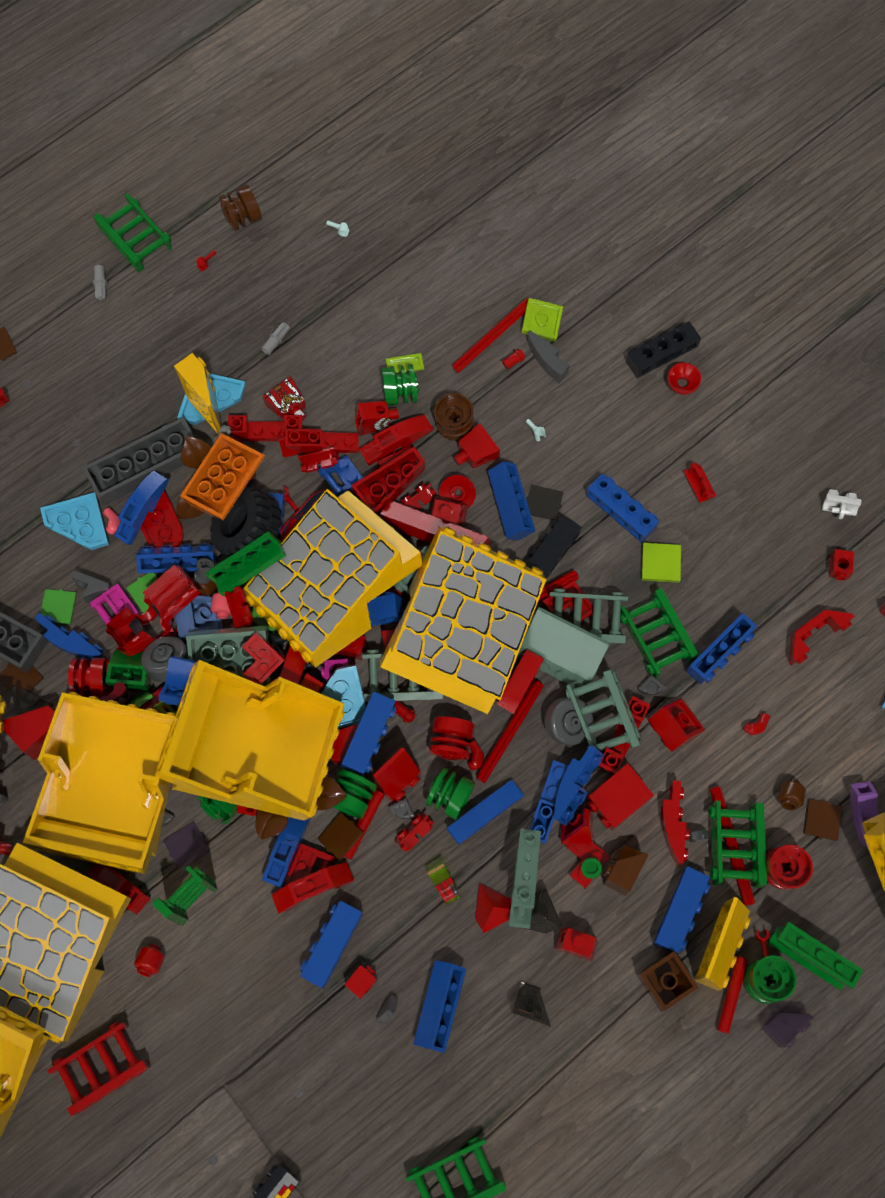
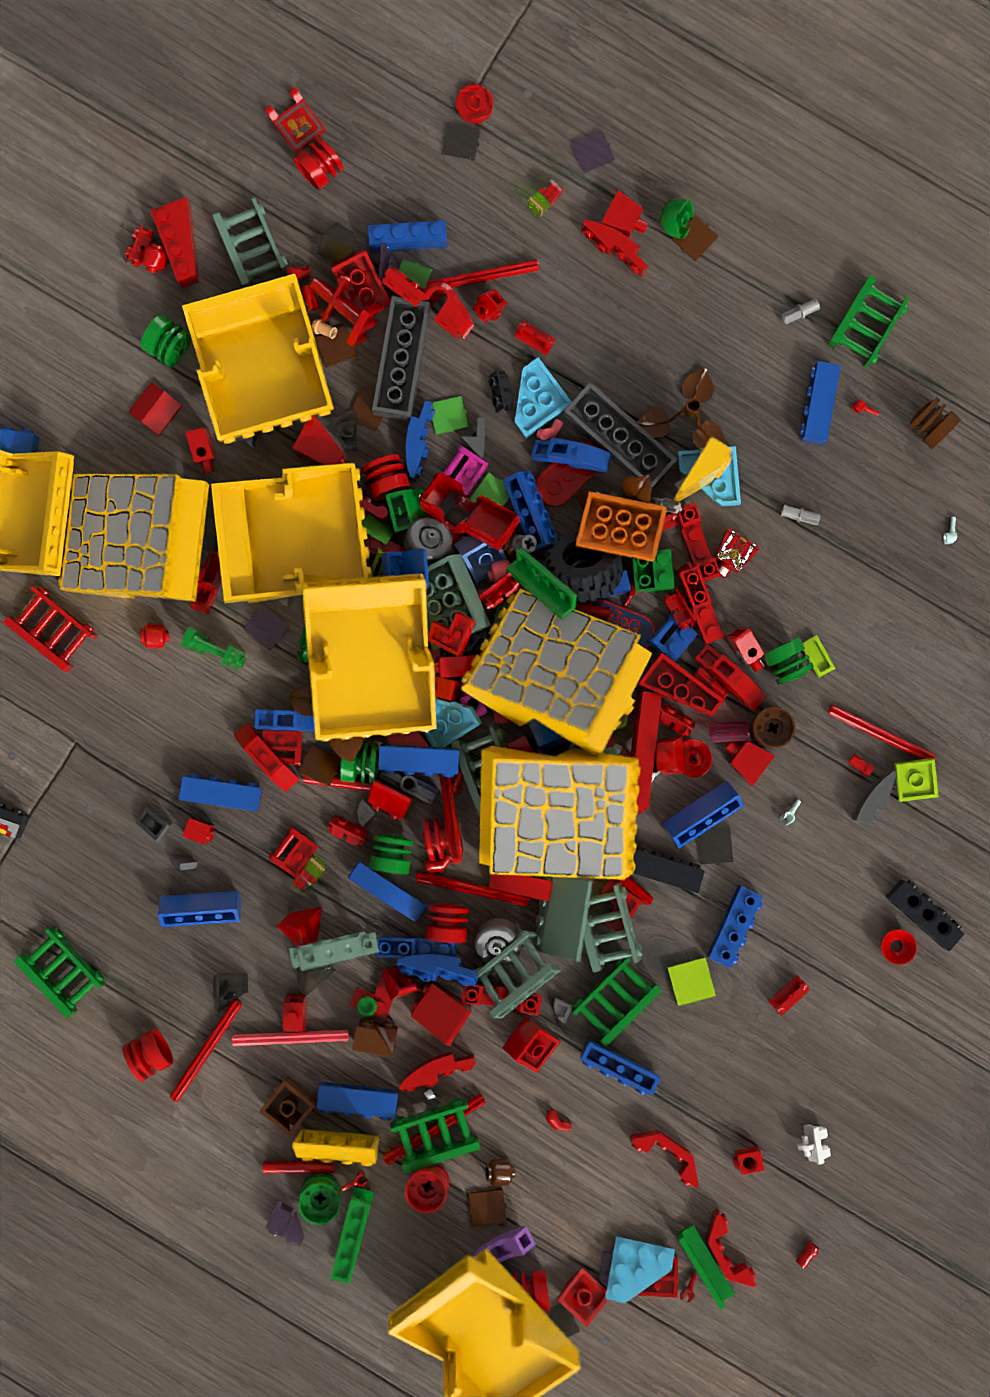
camera: 70 degrees right, 15 degrees up
(21, 506) = (534, 337): none -> red hinge
(50, 552) = (499, 382): none -> black hinge
(129, 384) = (698, 389): none -> reddish brown plant
(185, 291) = (820, 402): none -> blue brick
(276, 471) = (655, 575): none -> green slope
(337, 1026) = (153, 824): none -> dark grey slope
(403, 740) = (420, 790): none -> dark grey piece
(421, 888) = (298, 856): none -> red plate
(434, 720) = (450, 818): none -> red axle
(444, 456) = (728, 731): none -> clear pink tile
(534, 762) = (446, 923): none -> red wheel
(571, 1113) = (147, 1054): none -> red wheel
(586, 1052) = (205, 1050): none -> red axle
(599, 960) = (290, 1037): none -> coral axle

